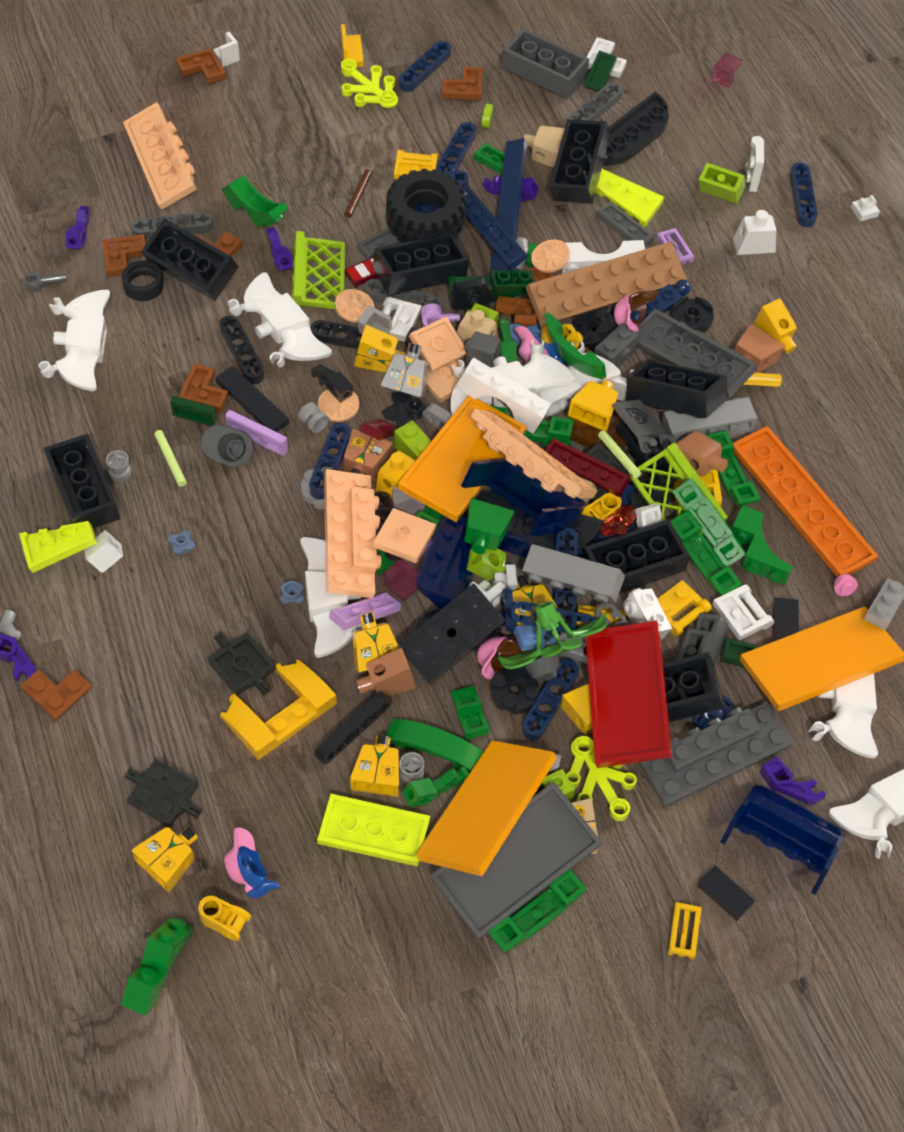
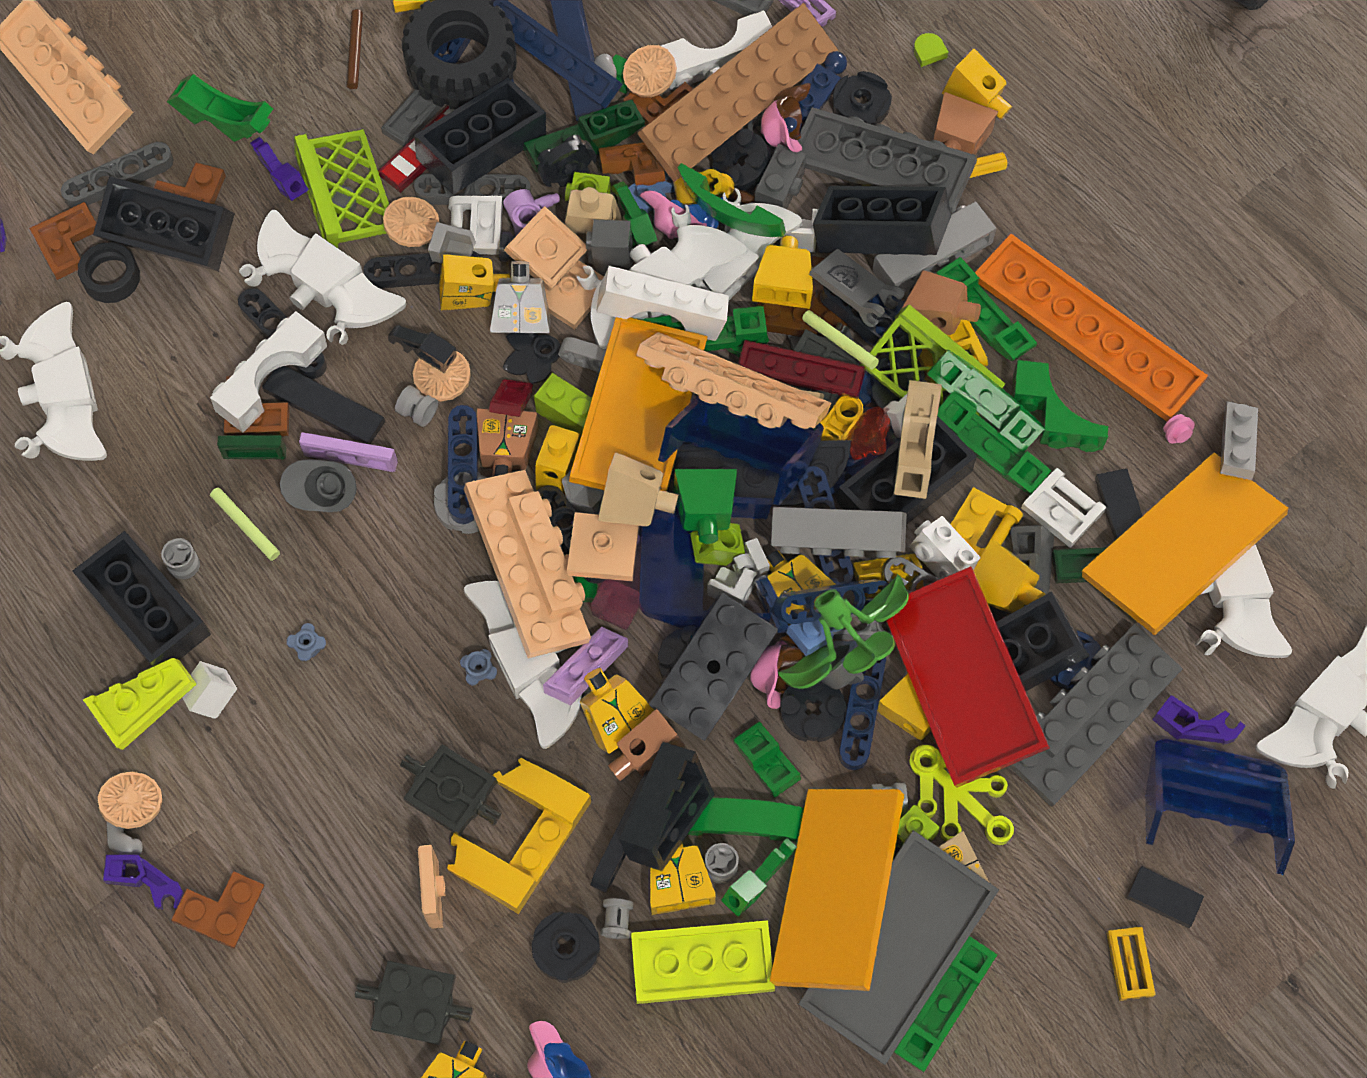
camera: 15 degrees left, 10 degrees up
(24, 604) = (130, 800): none -> light nougat wheel
(203, 718) = (431, 886): none -> light nougat plate
(244, 354) = (292, 343): none -> white arch
(280, 803) = (585, 949): none -> black plate
(328, 774) = (617, 918): none -> light grey bush
(385, 714) = (666, 807): none -> black wedge
(436, 504) = (634, 493): none -> tan torso
(649, 529) = (917, 439): none -> tan arch
(680, 639) = (1006, 579): none -> yellow torso
(752, 297) = (929, 49): none -> lime tile

